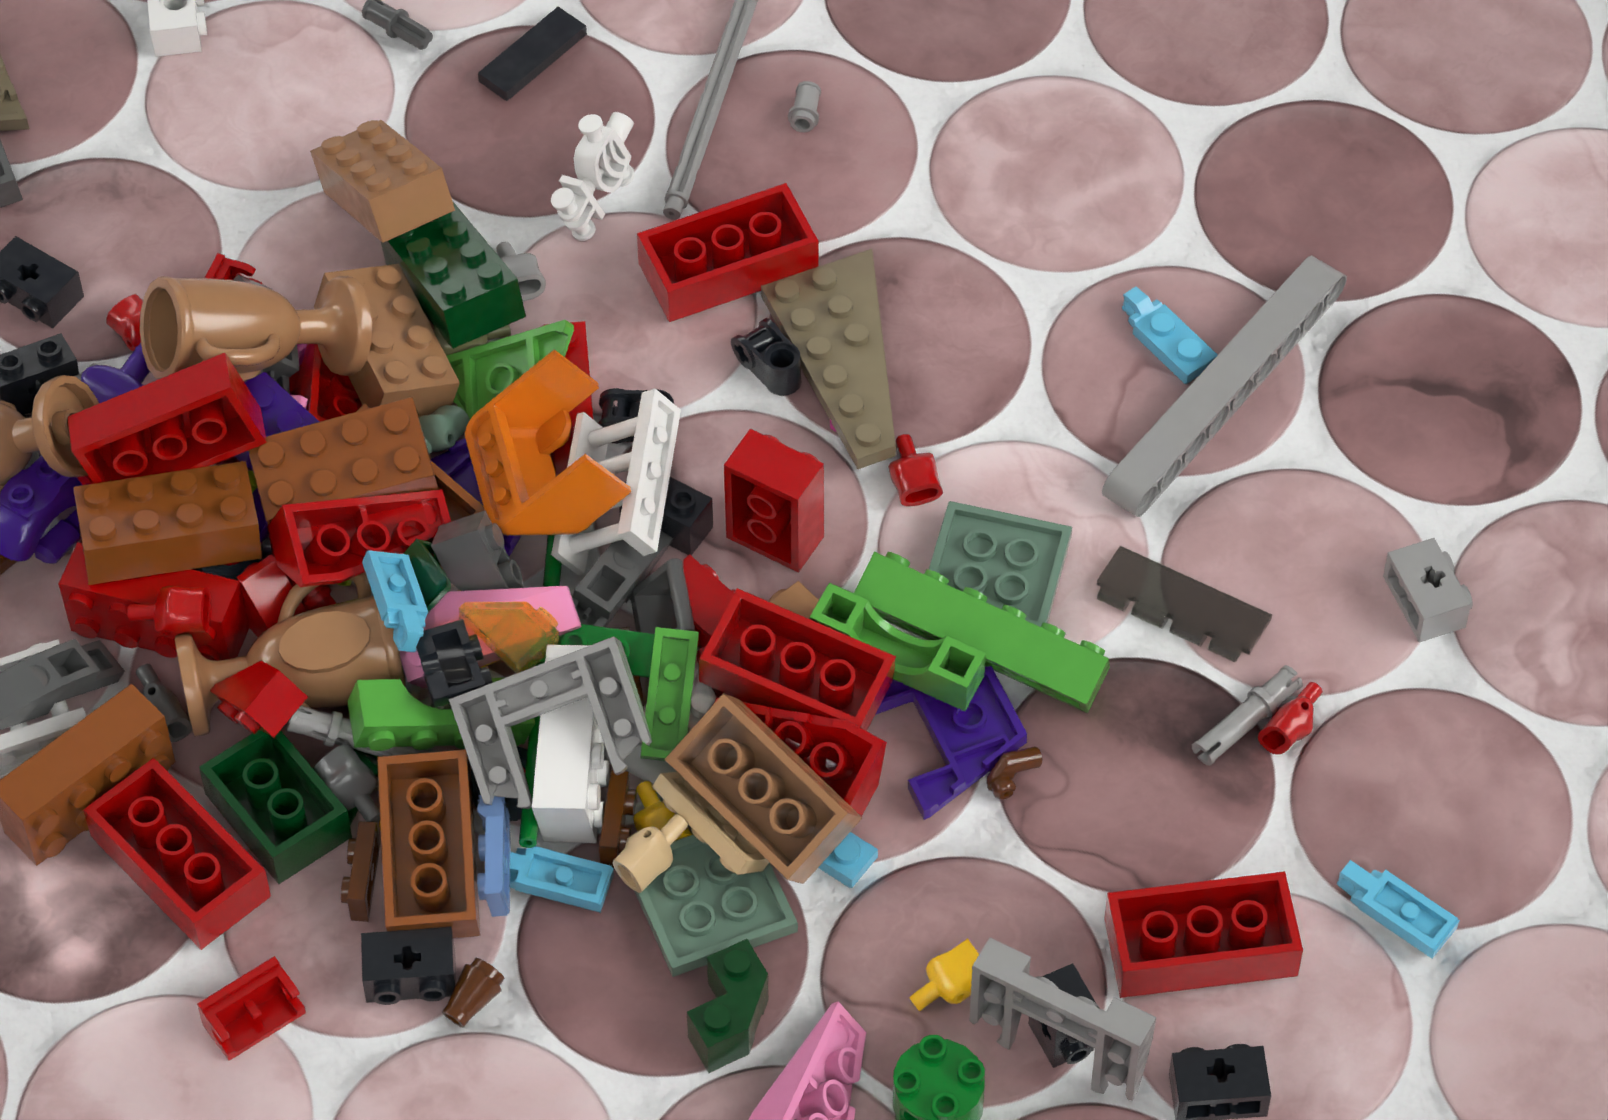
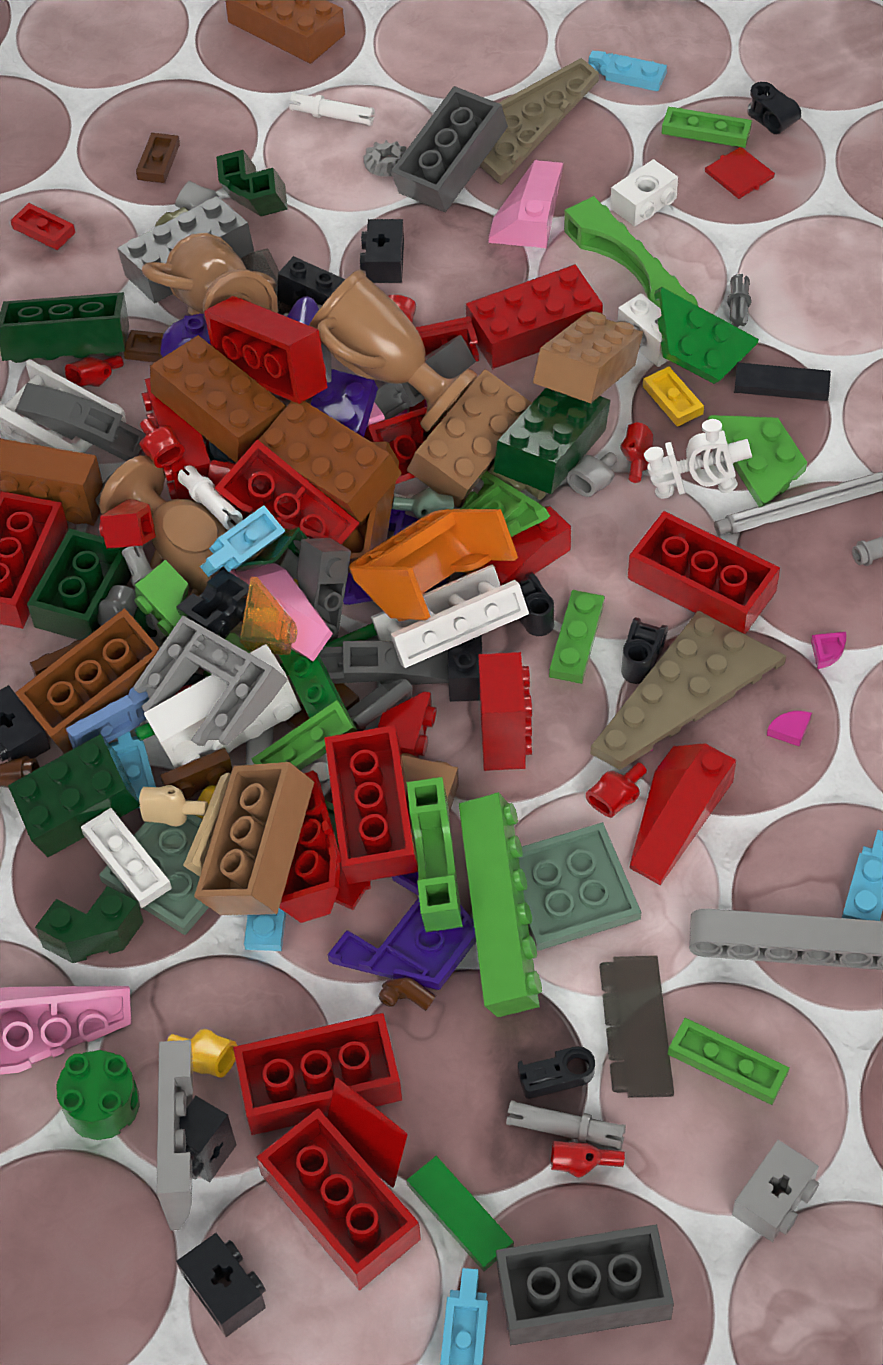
camera: 60 degrees right, 0 degrees up
(92, 120) = (530, 208): none -> bright pink wedge
(190, 80) = (599, 231): none -> bright green arch
(261, 199) = (530, 314): none -> red brick
(279, 604) = (202, 491): none -> white pin
(362, 104) = (644, 317): none -> white brick
(432, 79) = (699, 339): none -> green wing
(474, 150) = (673, 396): none -> yellow plate
(520, 219) = (633, 447): none -> red piece
(560, 939) = (71, 793): none -> dark green brick
(647, 141) = (774, 455): none -> bright green wing
(679, 926) = (126, 857): none -> white plate
(703, 402) = (577, 636): none -> bright green plate
(885, 213) = (828, 648): none -> dark pink tile
(953, 295) = (790, 727): none -> dark pink tile
(966, 422) = (678, 804): none -> red wedge
(1058, 879) = (296, 1072): none -> red brick
(1158, 858) = (368, 1131): none -> red sticker
(1184, 697) = (552, 1073): none -> black piece
(1273, 551) = (728, 1061): none -> bright green plate
(1276, 850) = (459, 1212): none -> green tile
(1422, 783) = (584, 1284): none -> dark grey brick

